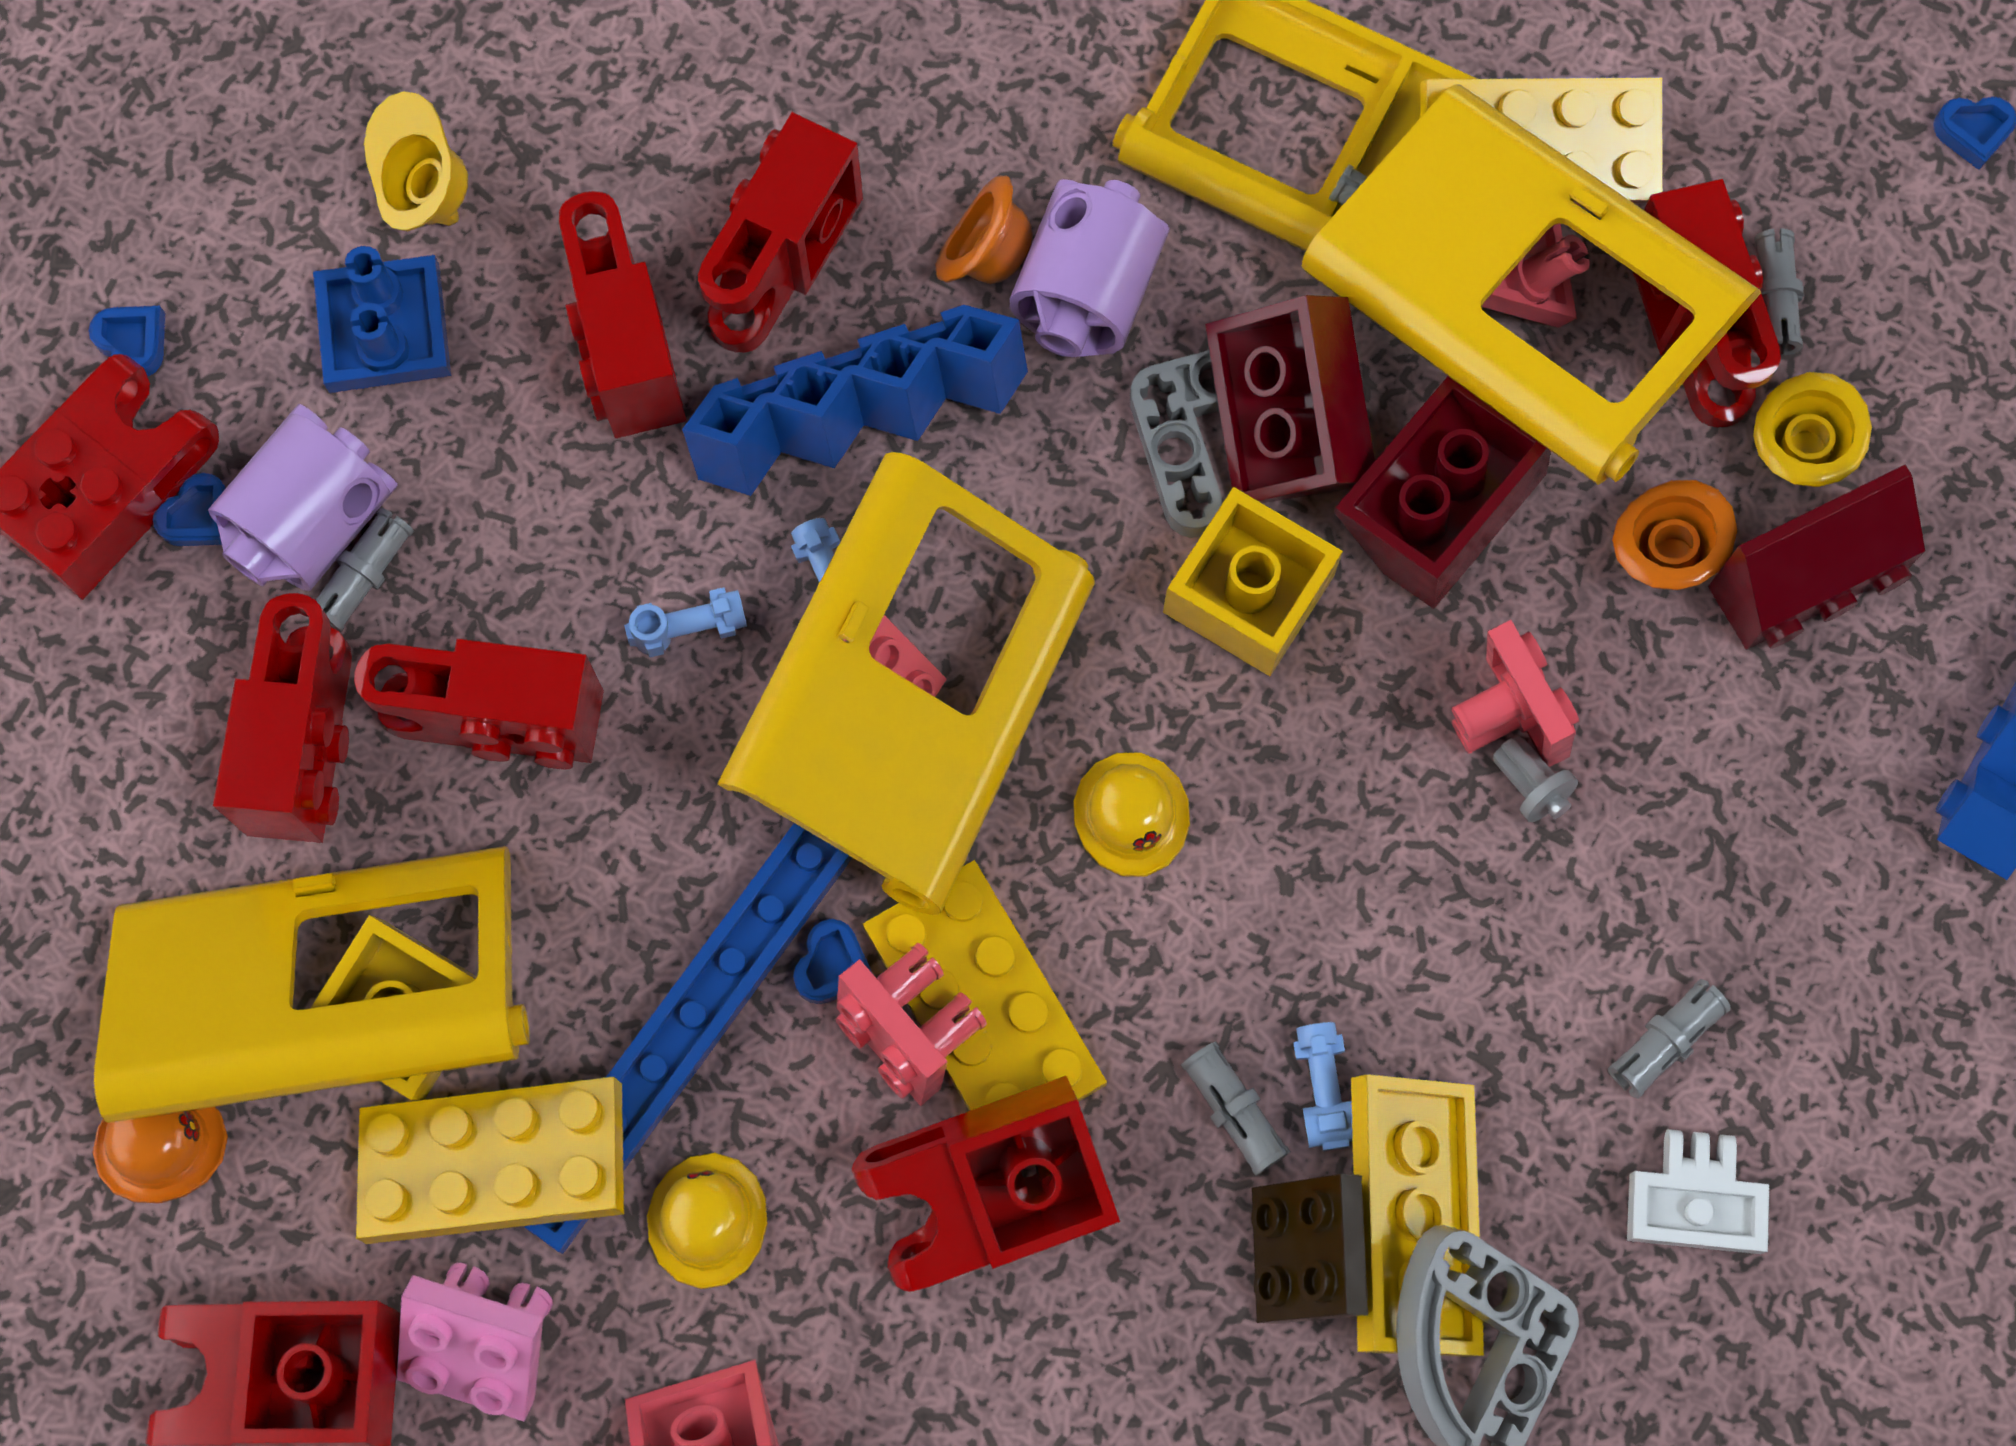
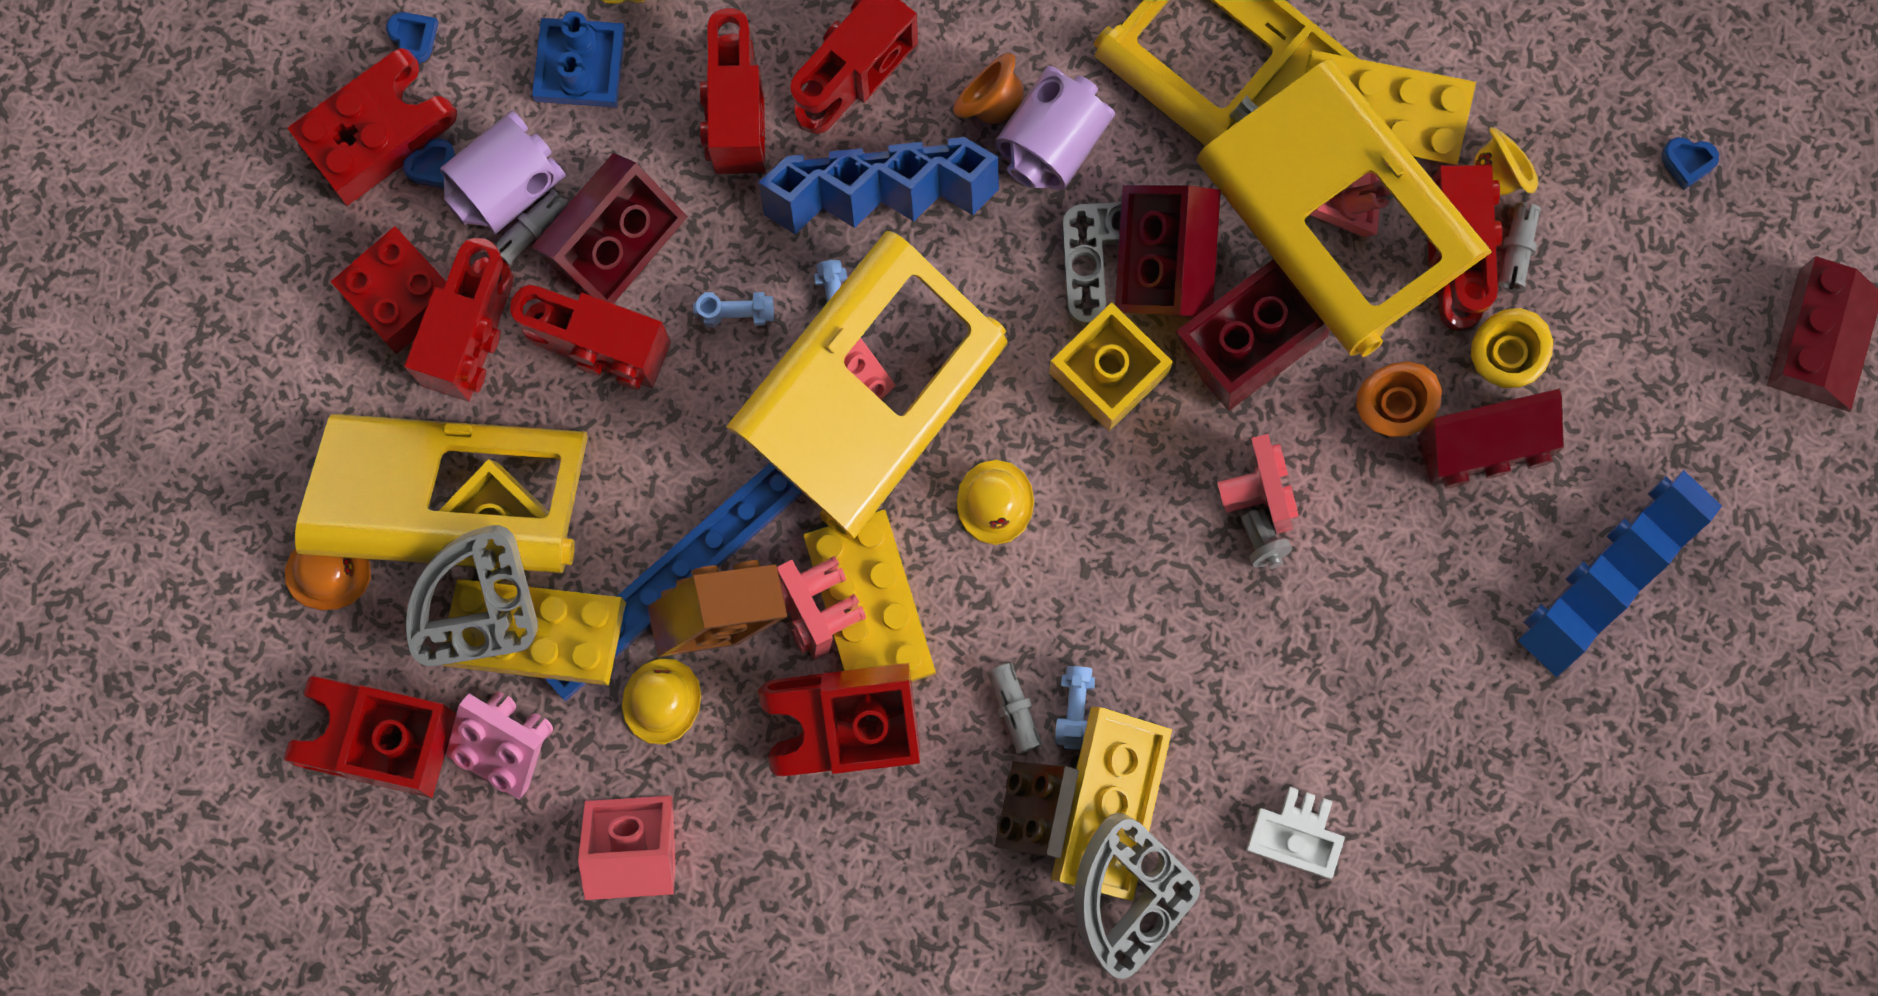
camera: 15 degrees right, 5 degrees up
(168, 700) = (390, 288): none -> red brick
(427, 1160) = (491, 623): none -> light grey beam
(479, 546) = (610, 229): none -> dark red slope
(763, 1058) = (716, 608): none -> dark orange brick
(831, 952) = (779, 548): blue tile -> none
(1669, 1038) = (1307, 728): light grey pin -> none
(1740, 180) = (1508, 164): none -> yellow hat

